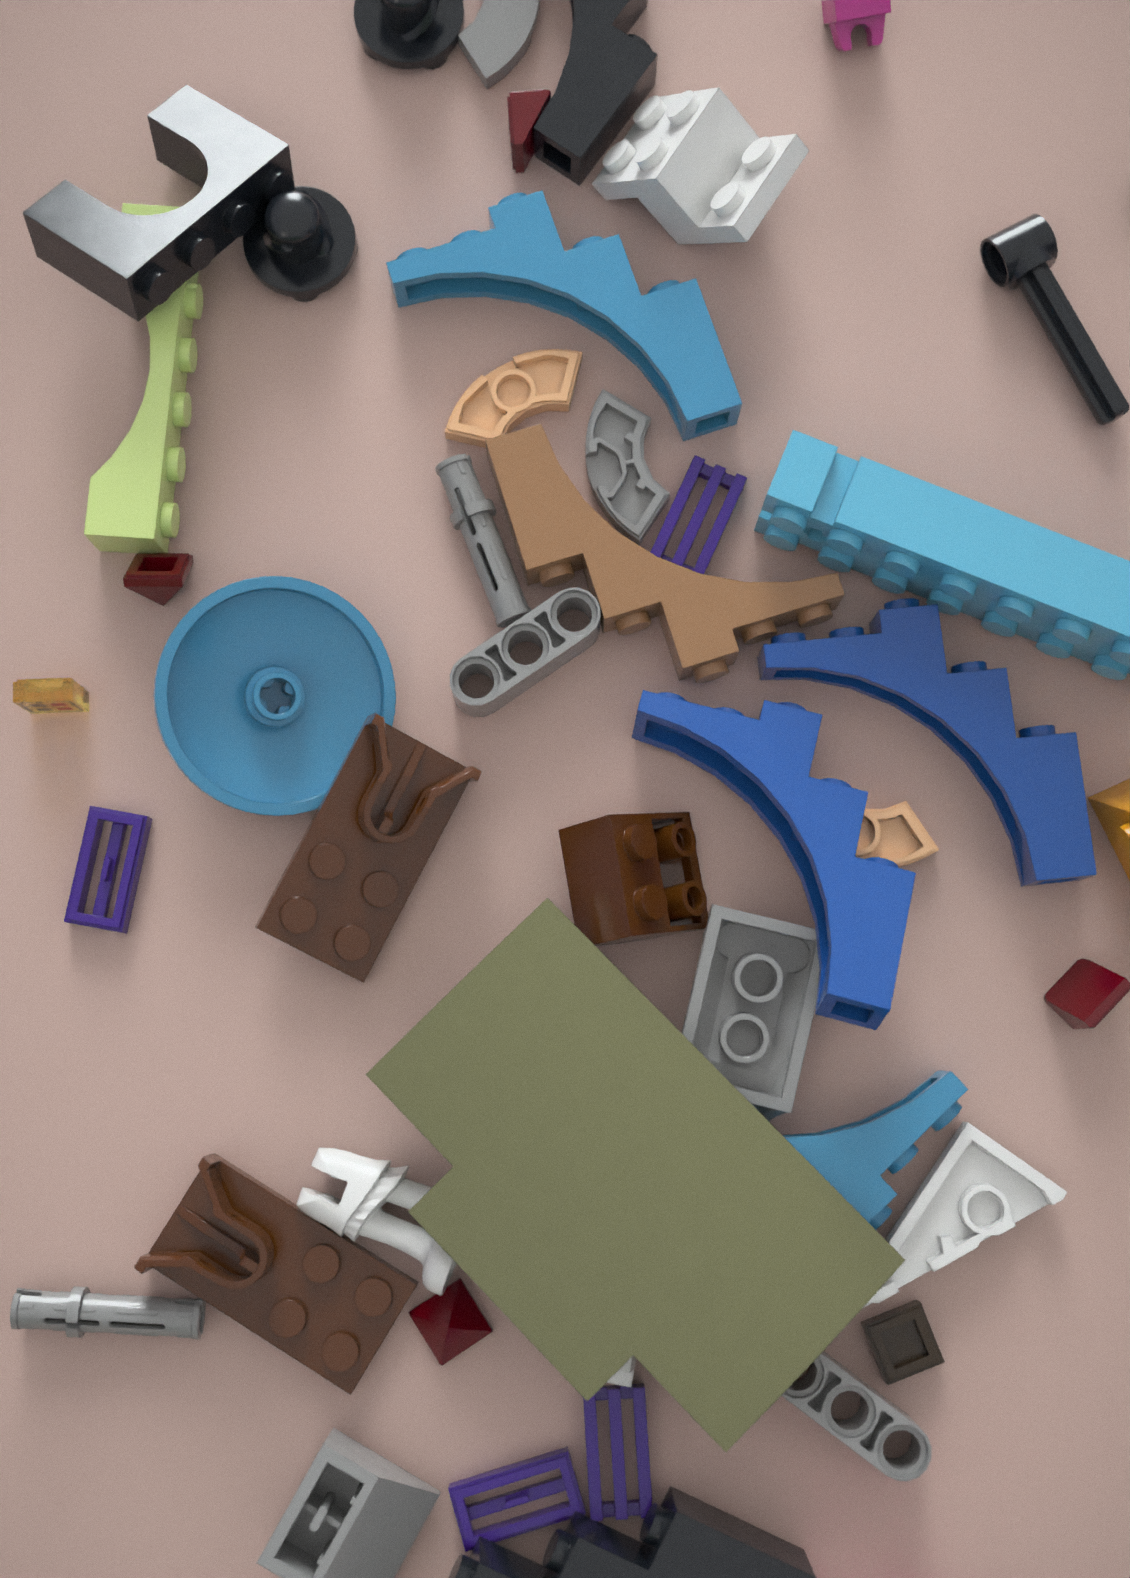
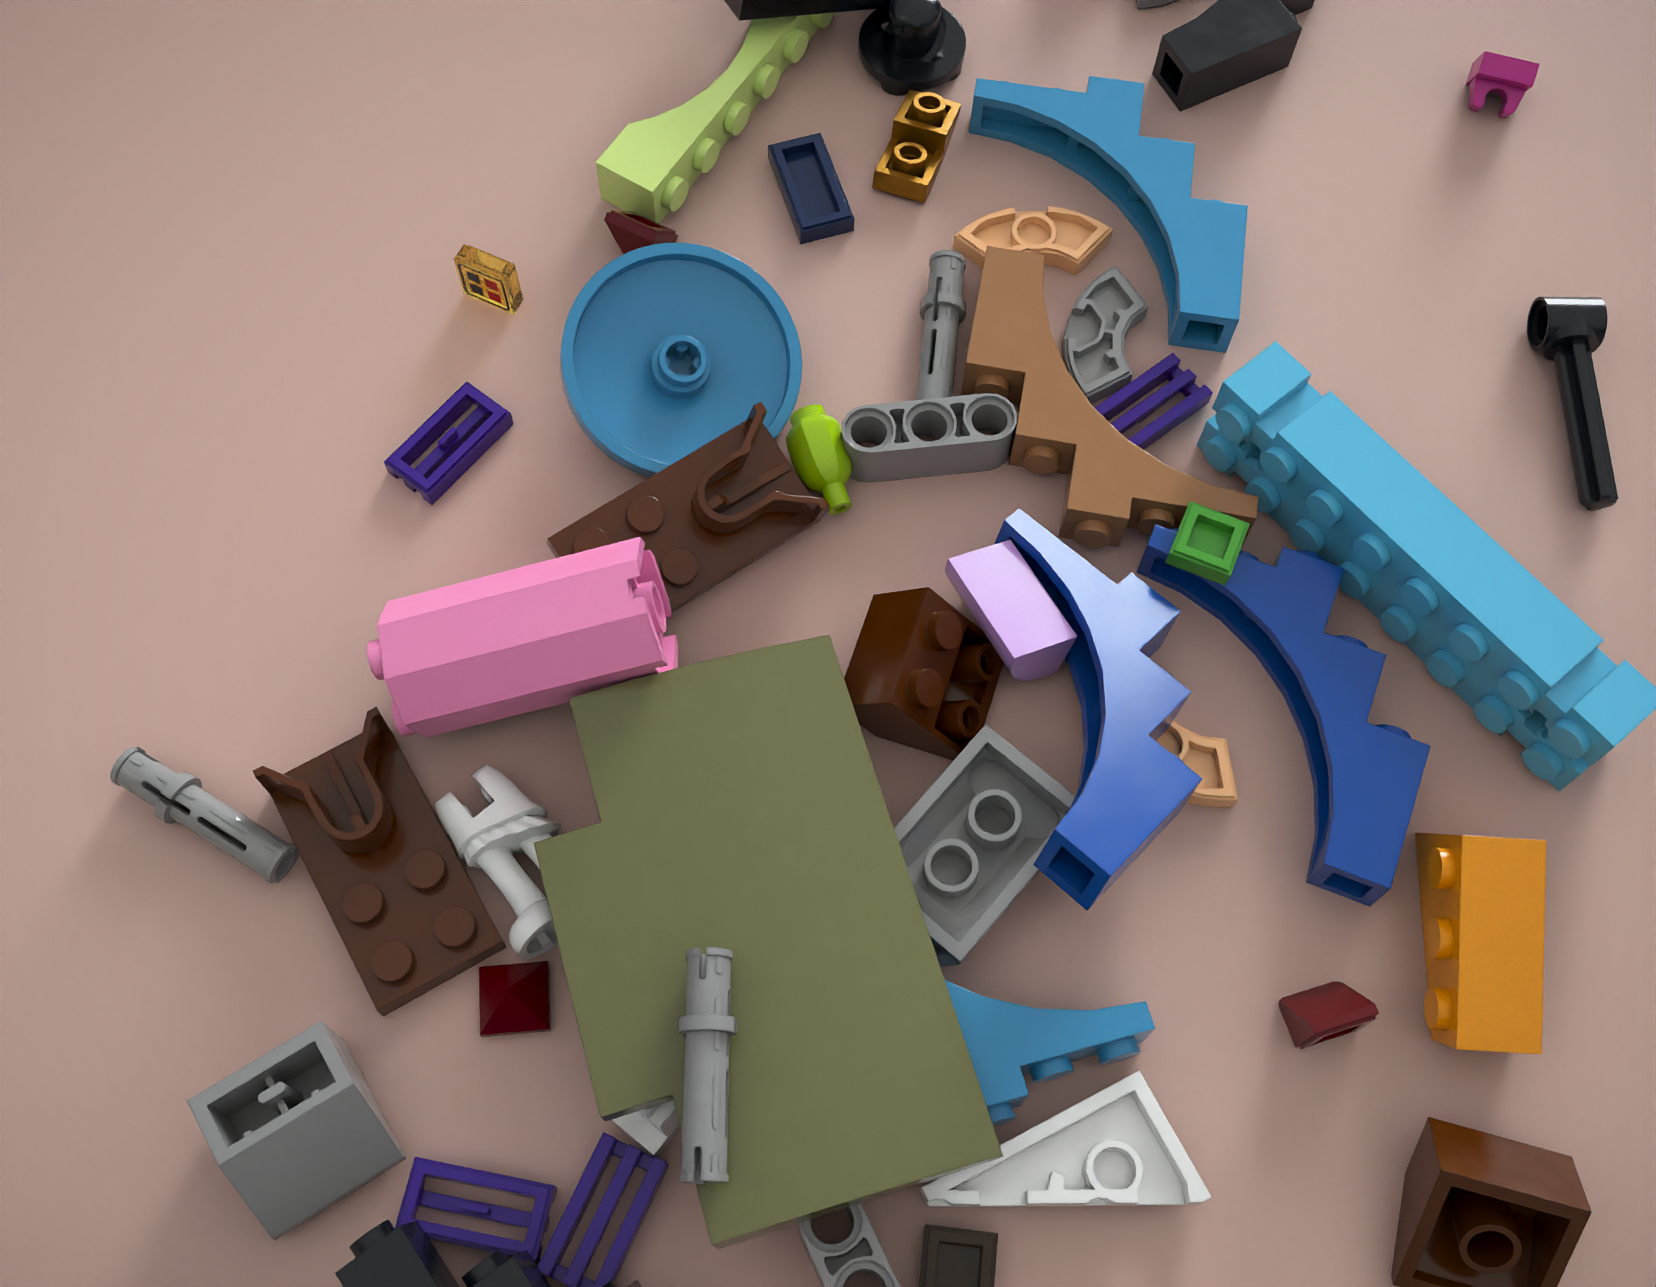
camera: 25 degrees right, 15 degrees down
(286, 444) = (810, 188): none -> dark blue tile
(296, 1038) = (523, 639): none -> bright pink brick
(360, 350) = (916, 145): none -> pearl gold slope
(442, 718) = (820, 455): none -> lime plant
(523, 114) = (1158, 22): dark red slope -> none
(639, 1302) = (706, 1066): none -> light grey pin
(680, 784) = (1012, 609): none -> lavender brick
(699, 167) = (1295, 125): white bracket -> none
(817, 643) = (1207, 543): none -> bright green tile

